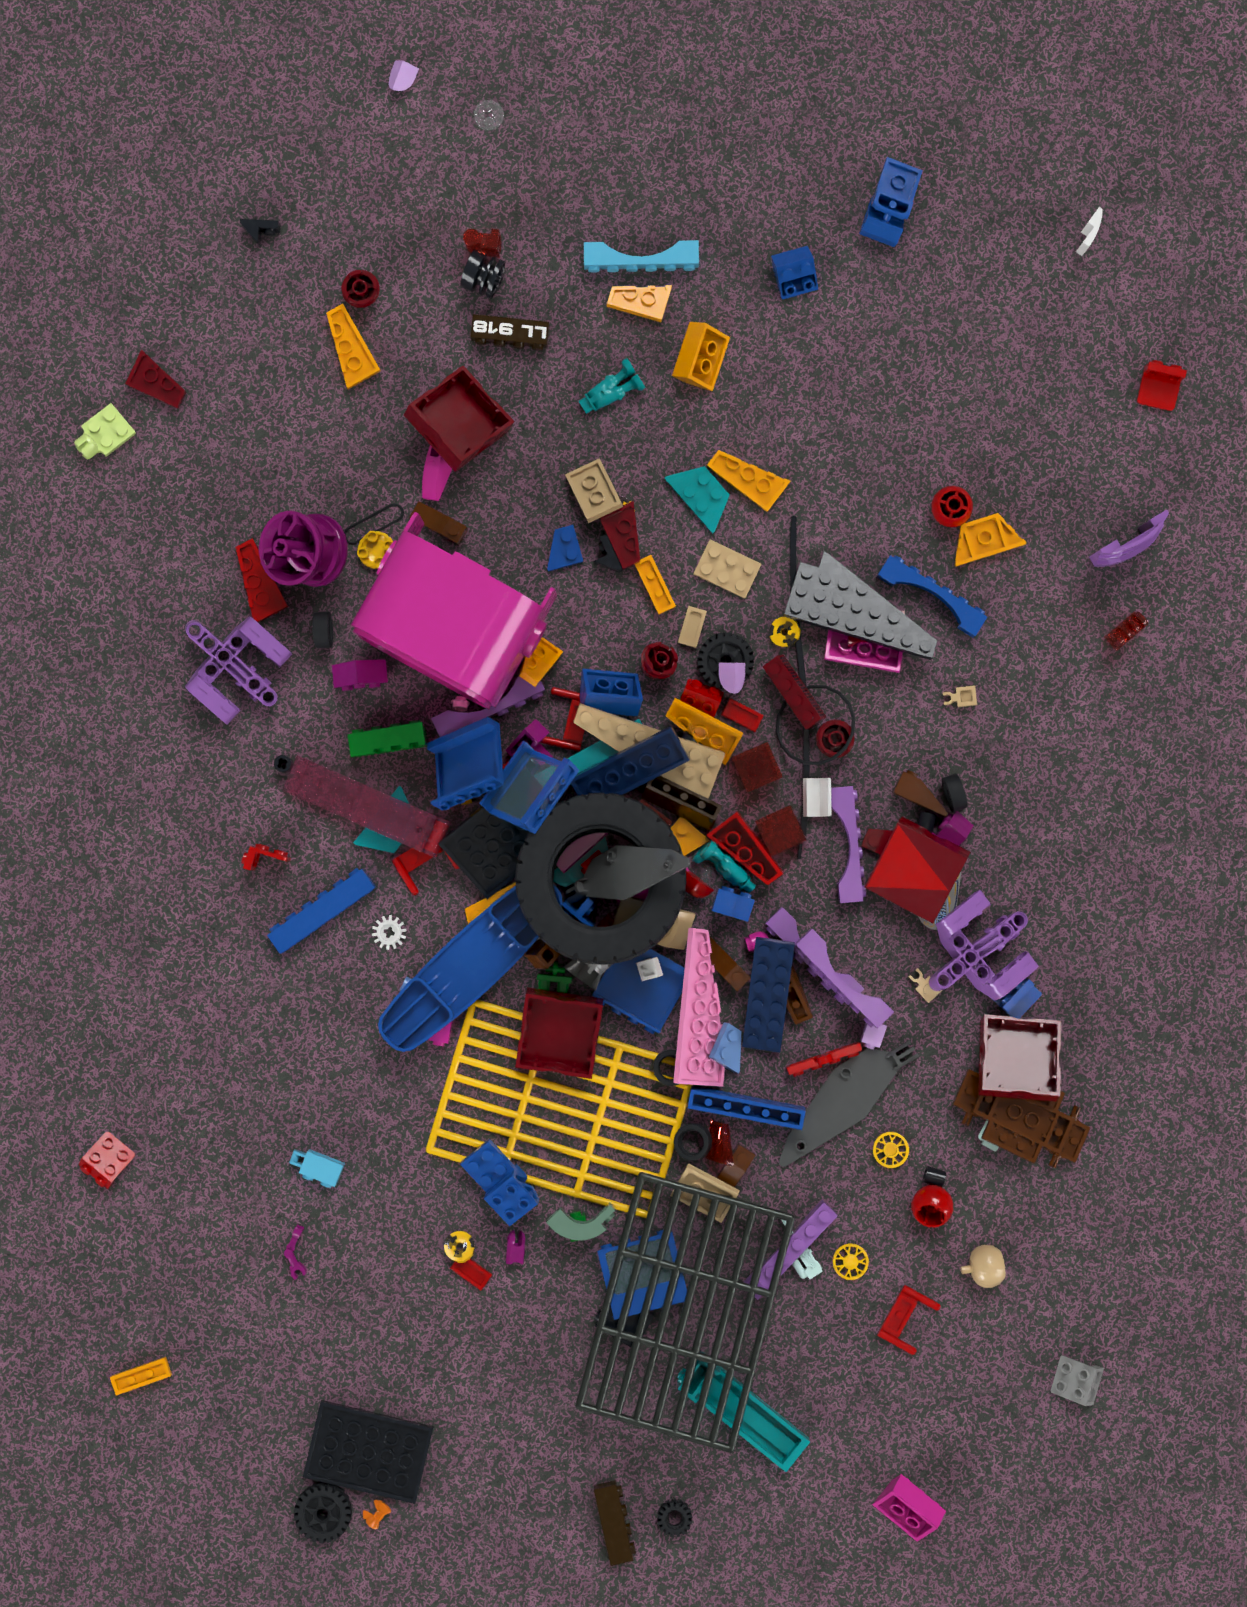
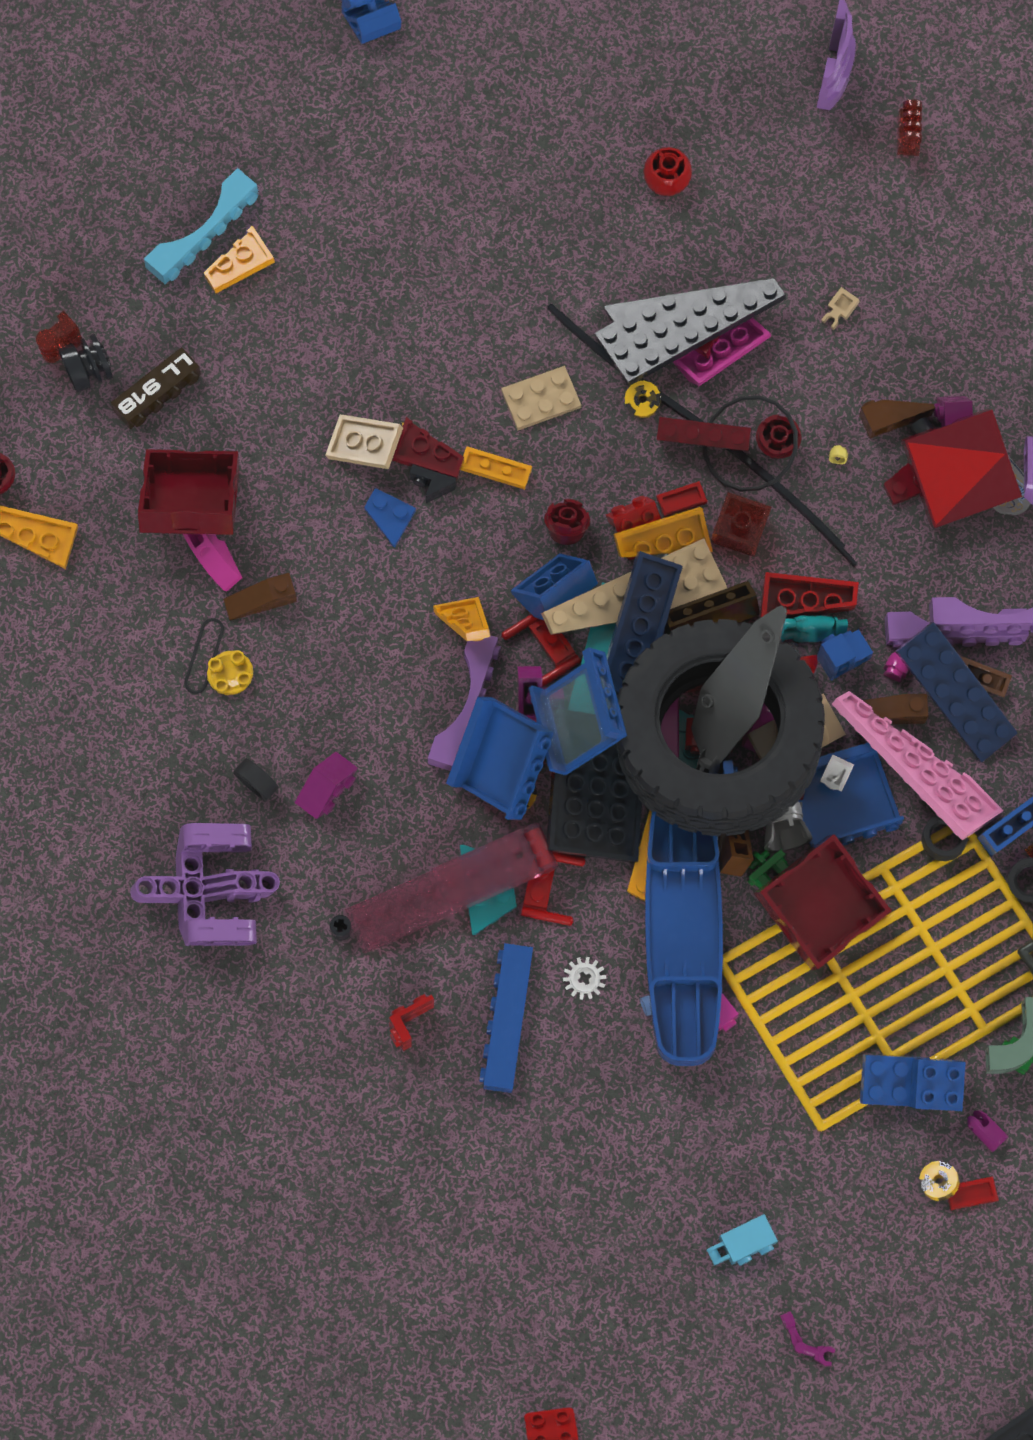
camera: 50 degrees left, 15 degrees down
(262, 591) = (159, 800): red wing -> none
(303, 549) = (147, 728): magenta wheel -> none
(388, 739) = (410, 813): green wedge -> none
(449, 618) = (363, 640): dark pink container -> none
(460, 704) = (438, 724): bright pink plate -> none
(608, 391) = (287, 356): teal piece -> none
(692, 626) = (563, 471): tan tile -> none
(701, 355) = (335, 255): light orange slope -> none
(701, 494) = (455, 361): teal wing -> none
(723, 645) = (625, 453): black wheel -> none
(728, 1048) = (972, 774): medium blue wing -> none
(732, 676) = (640, 470): lavender brick -> none
(753, 482) = (489, 310): light orange wing -> none
(781, 830) = (817, 552): clear red brick -> none
(795, 272) = (342, 120): blue slope -> none
(816, 797) = (816, 499): white panel -> none
(850, 884) = (842, 484): medium lavender arch -> none
(863, 783) = (838, 451): none -> light yellow hinge
(954, 792) = (920, 383): black tyre -> none
(968, 618) = (774, 242): blue arch -> none
(985, 538) = (721, 171): light orange wing -> none

